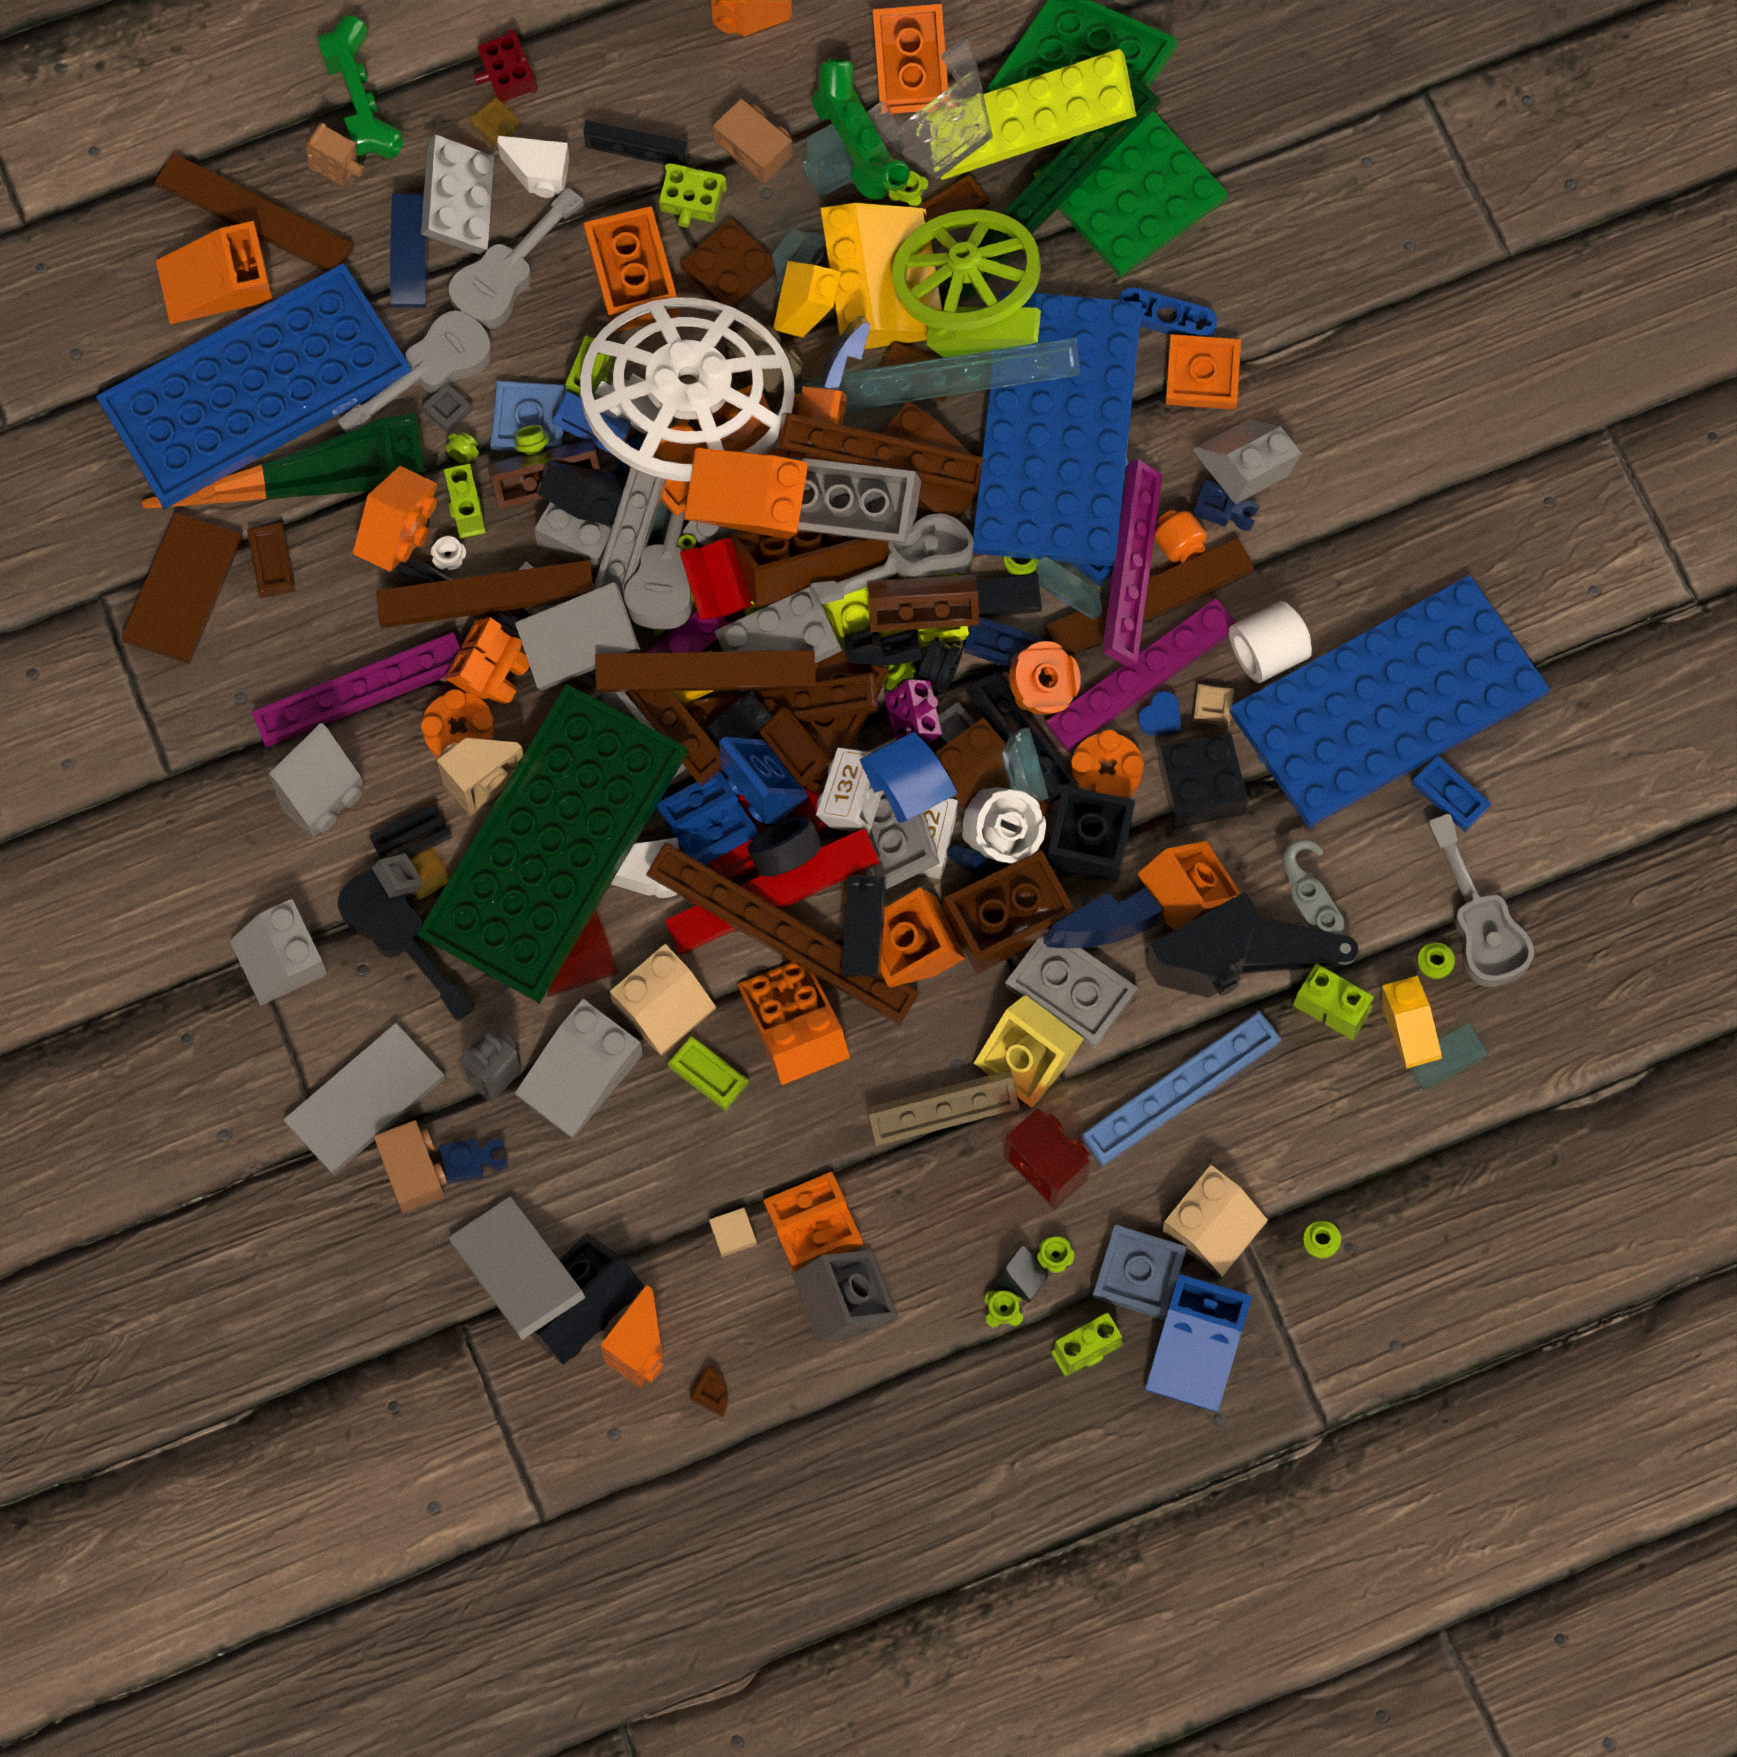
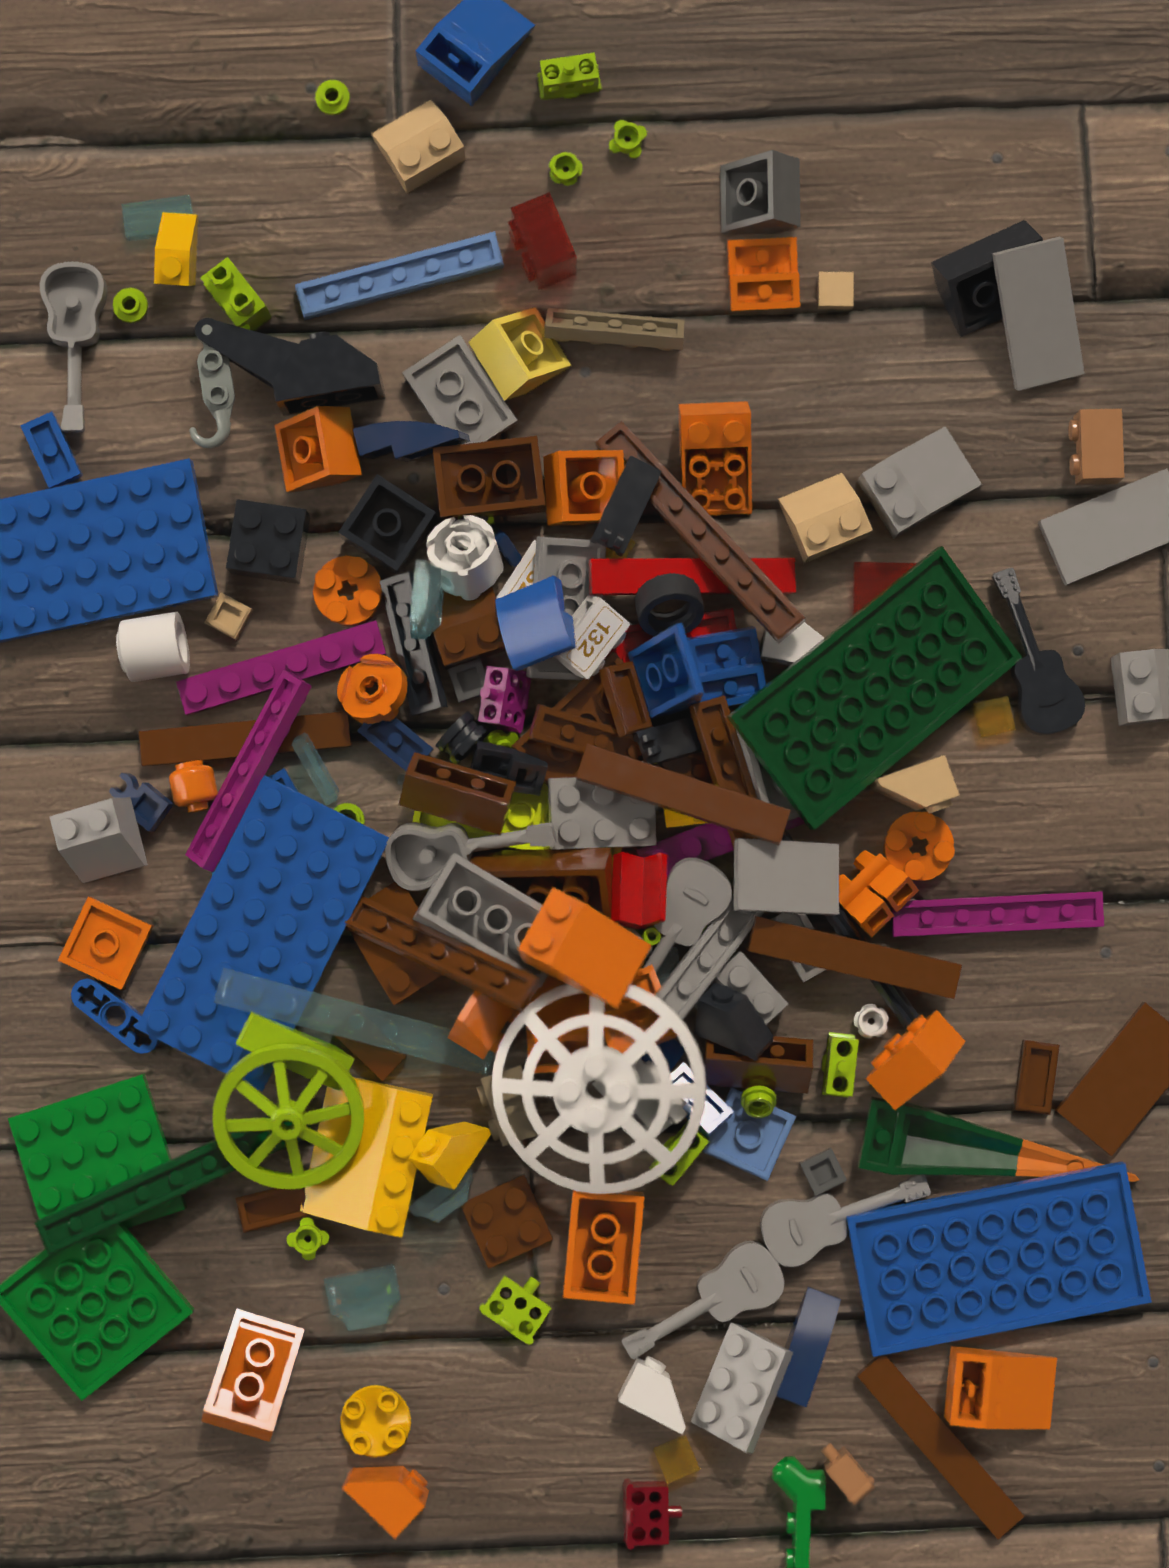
camera: 165 degrees left, 15 degrees up
(316, 782) = (1069, 823): light grey slope -> none
(397, 875) = (1023, 714): dark grey tile -> none
(407, 823) = (1026, 753): black tile -> none
(462, 448) = (823, 1123): lime plate -> none
(464, 1159) = (1045, 439): dark blue plate -> none
(490, 1063) = (1000, 505): dark grey brick -> none
(635, 144) = (551, 1380): black tile -> none
(635, 1341) = (957, 210): orange slope -> none
(708, 1073) = (806, 440): lime tile -> none
(711, 1392) = (903, 159): reddish brown tile -> none
(753, 140) = (436, 1343): medium nougat brick -> none
(784, 60) = (375, 1421): none -> yellow dish
(836, 100) = (341, 1354): green plate -> none
(850, 344) = (436, 1068): slope -> none
(946, 127) = (249, 1278): clear wing -> none
(1009, 595) = (372, 790): black tile -> none
(1023, 1275) = (601, 158): slope -> none
(1053, 109) = (162, 1261): neon yellow plate -> none
(1139, 1272) = (500, 125): sand blue plate -> none
(1161, 716) = (279, 622): blue tile -> none

